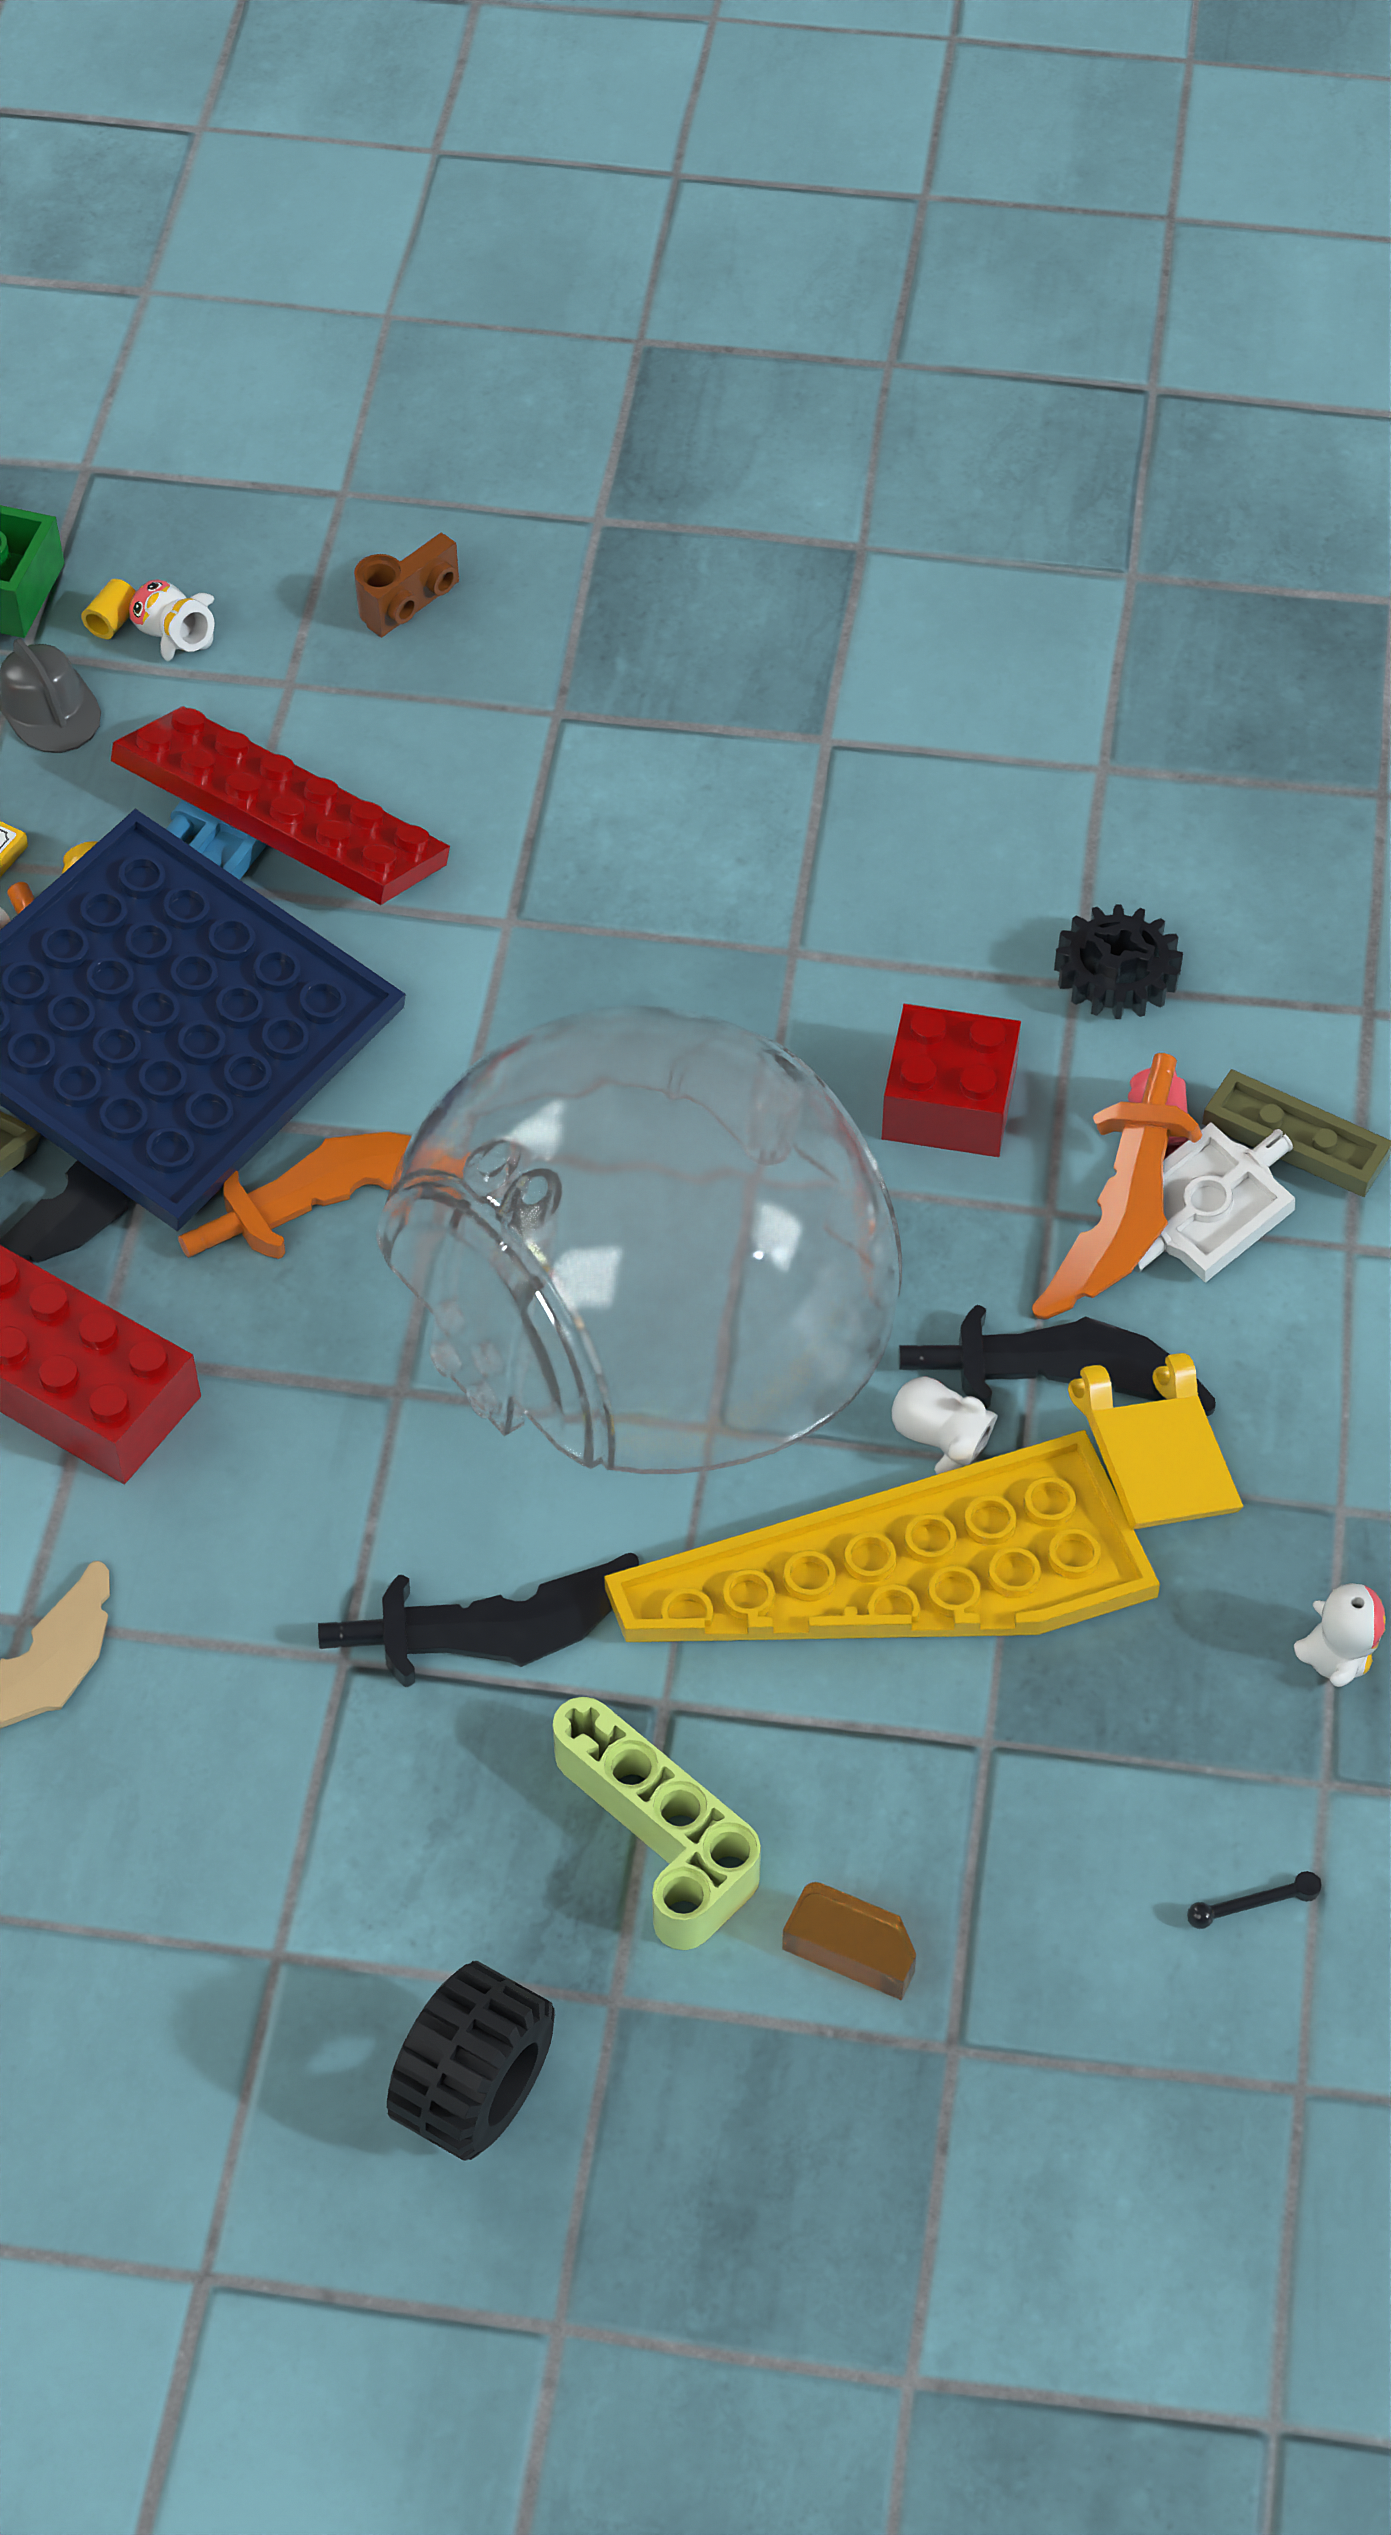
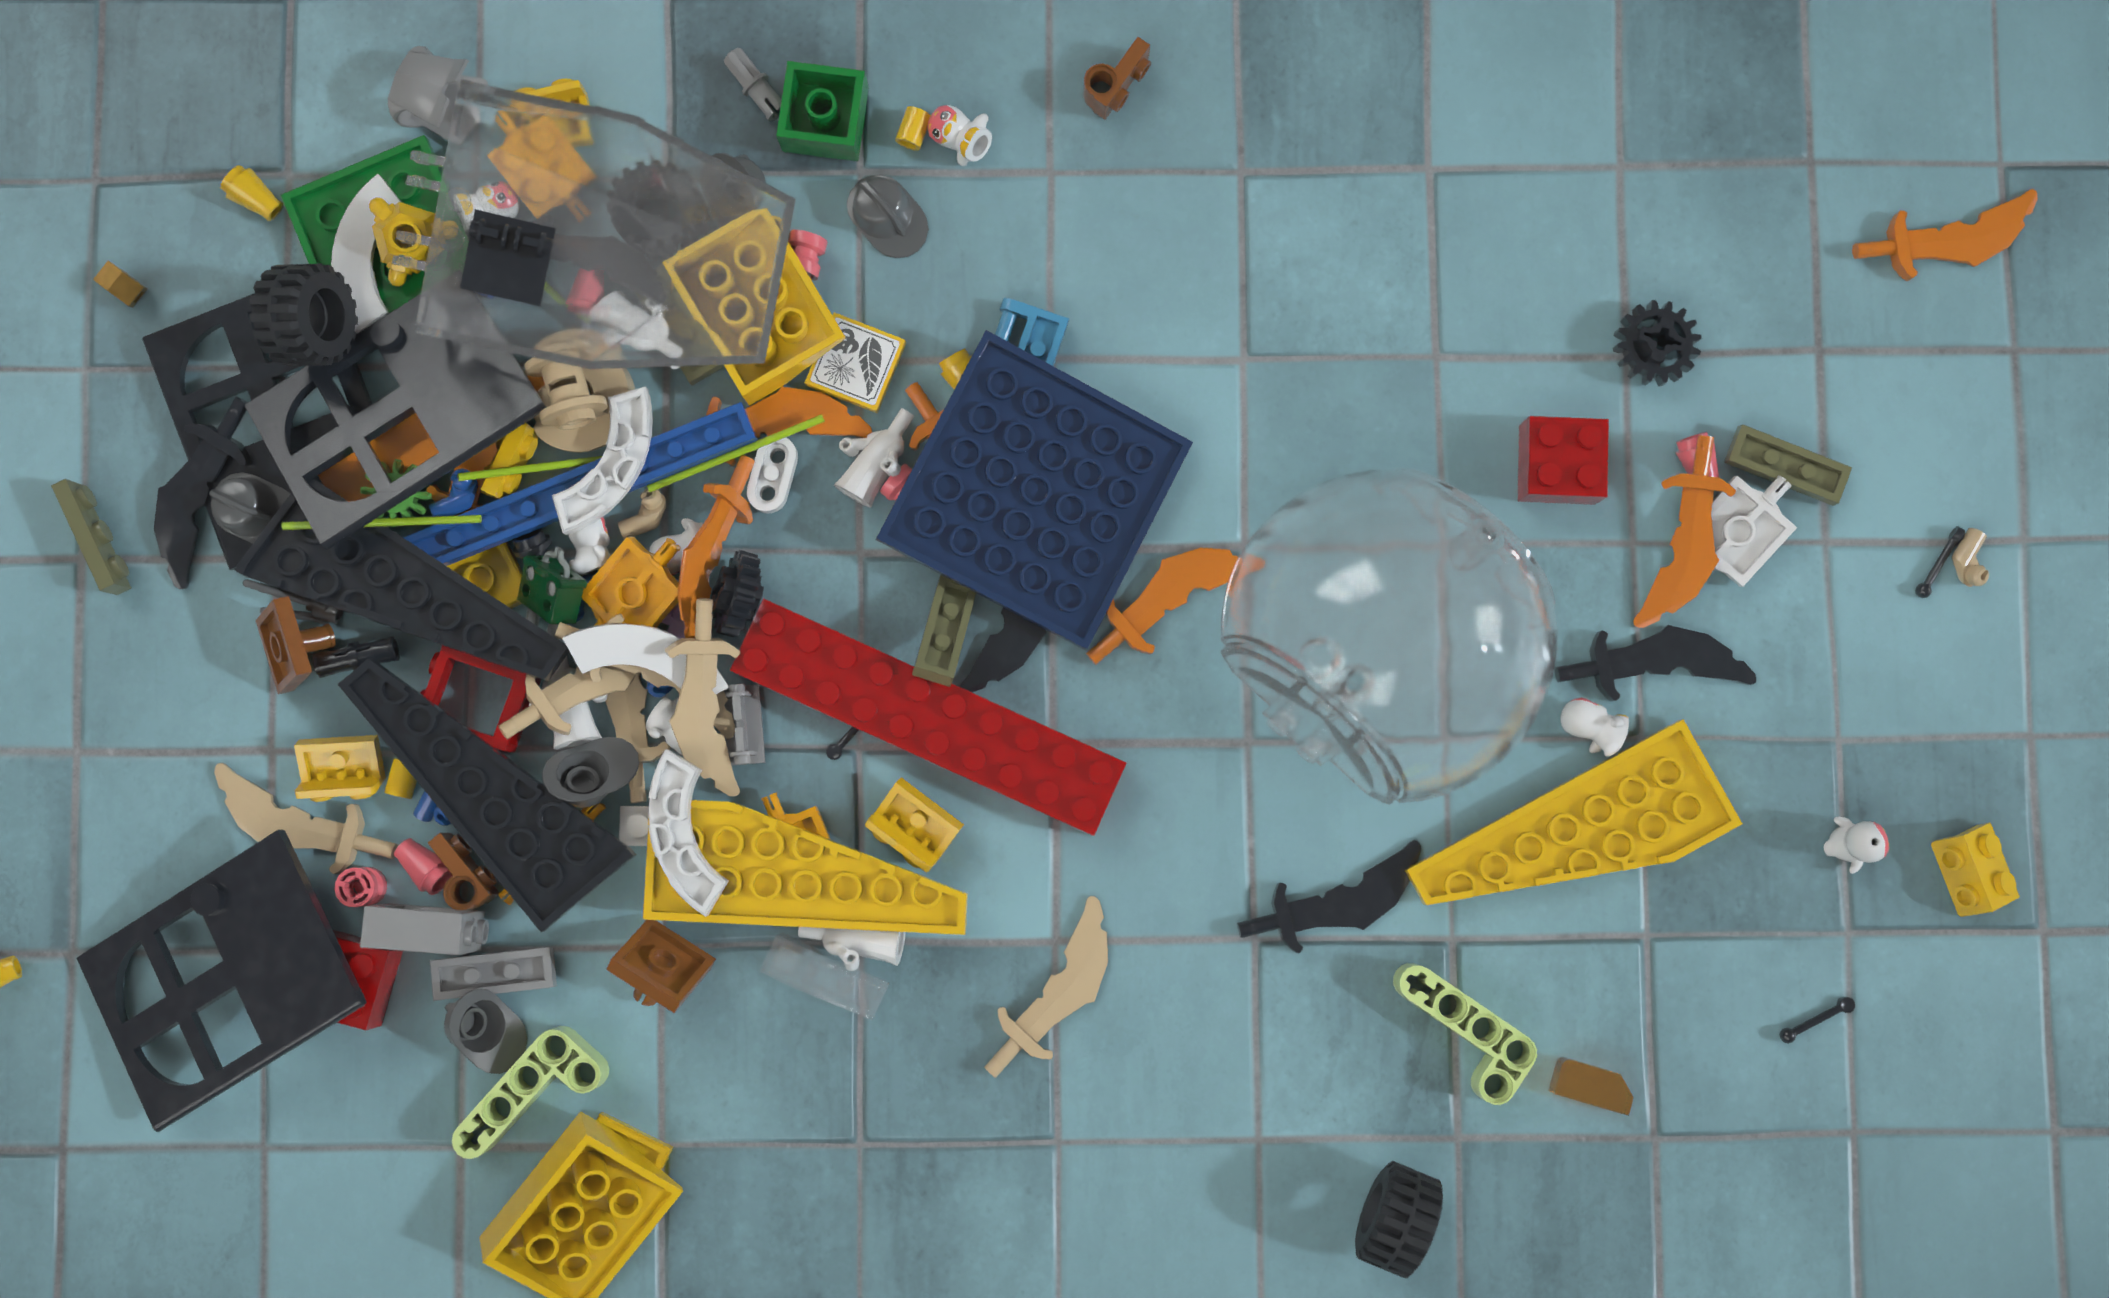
camera: 10 degrees left, 30 degrees up
(281, 804) = (1073, 291): red plate -> none
(1158, 1450) = (1731, 727): yellow flag -> none

